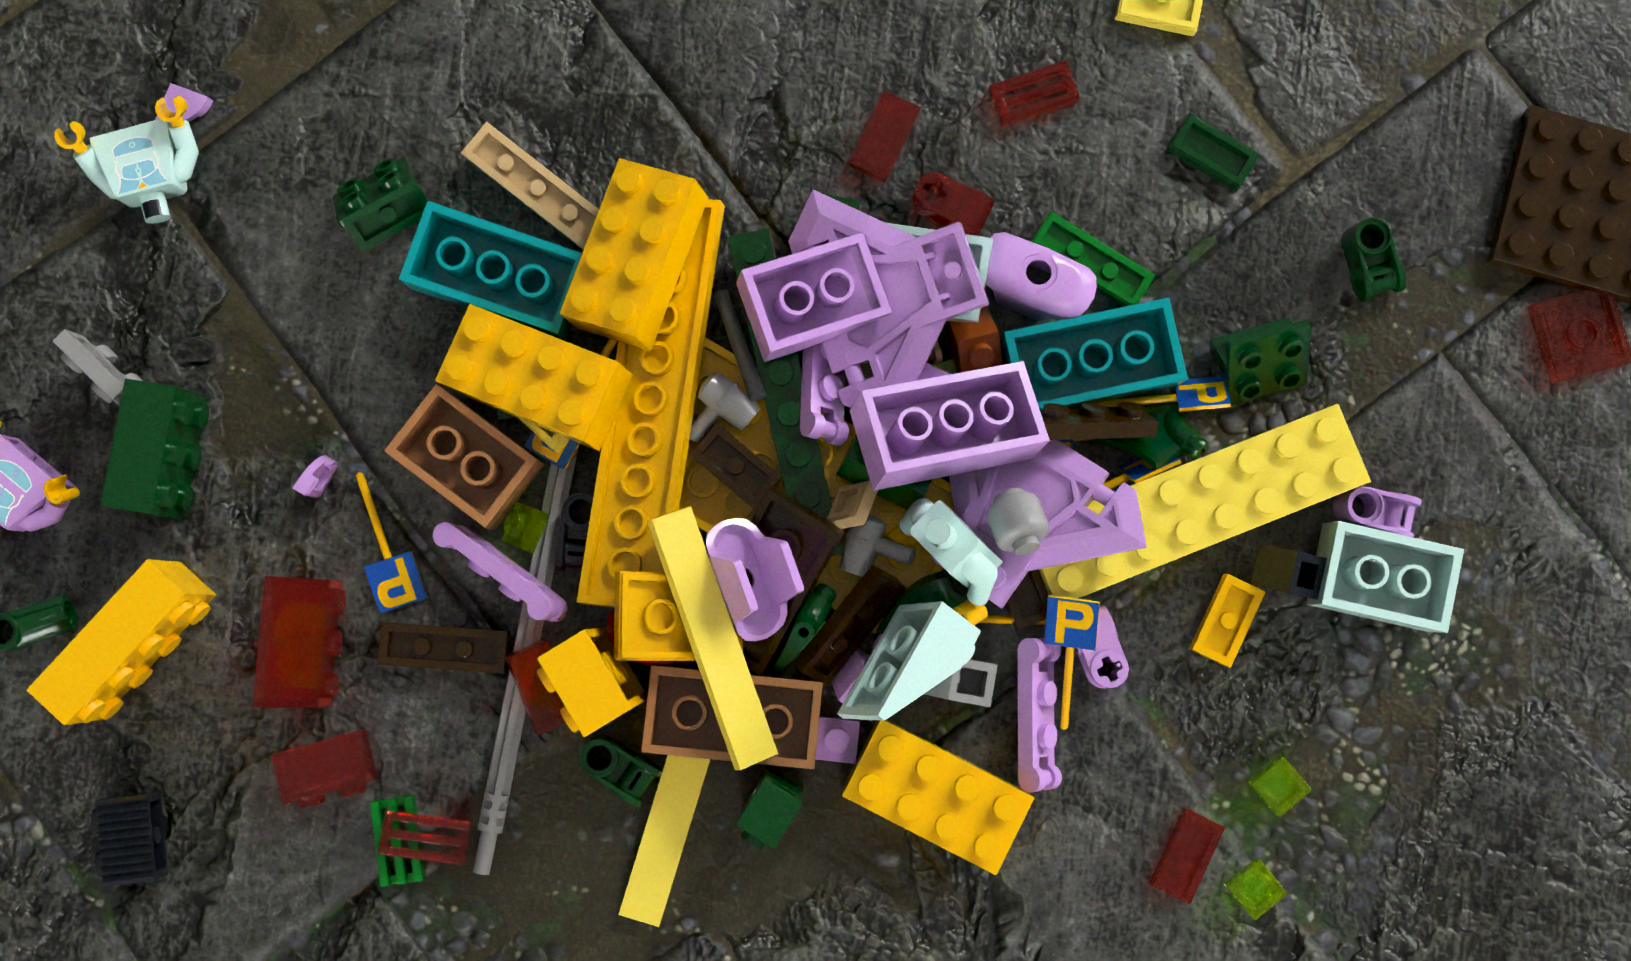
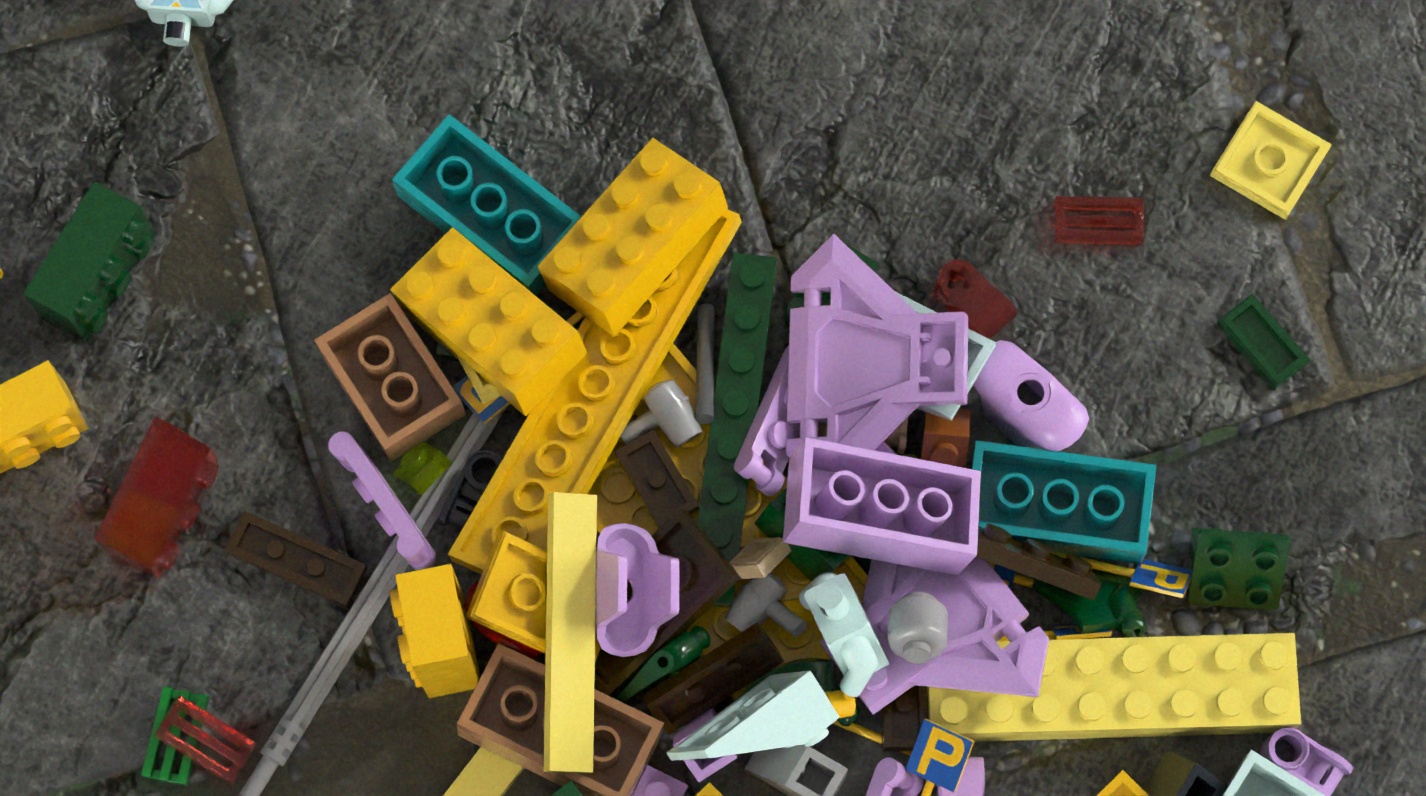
camera: 25 degrees right, 10 degrees down
(95, 363) = (63, 156): light grey plate -> none
(316, 477) = (233, 346): lavender tile -> none
(325, 767) = (132, 635): clear red brick -> none
(380, 203) = (400, 101): dark green bracket -> none
(396, 578) = (272, 475): piece -> none
(532, 184) = (556, 134): tan plate -> none
(541, 706) = (376, 634): clear red tile -> none
(621, 770) = (427, 744): dark green piece -> none
(812, 296) = (793, 335): lavender slope -> none
(884, 136) = (930, 210): clear red tile -> none
(1115, 274) = (1110, 420): green tile -> none
(1371, 263) = (1389, 515): dark green piece -> none

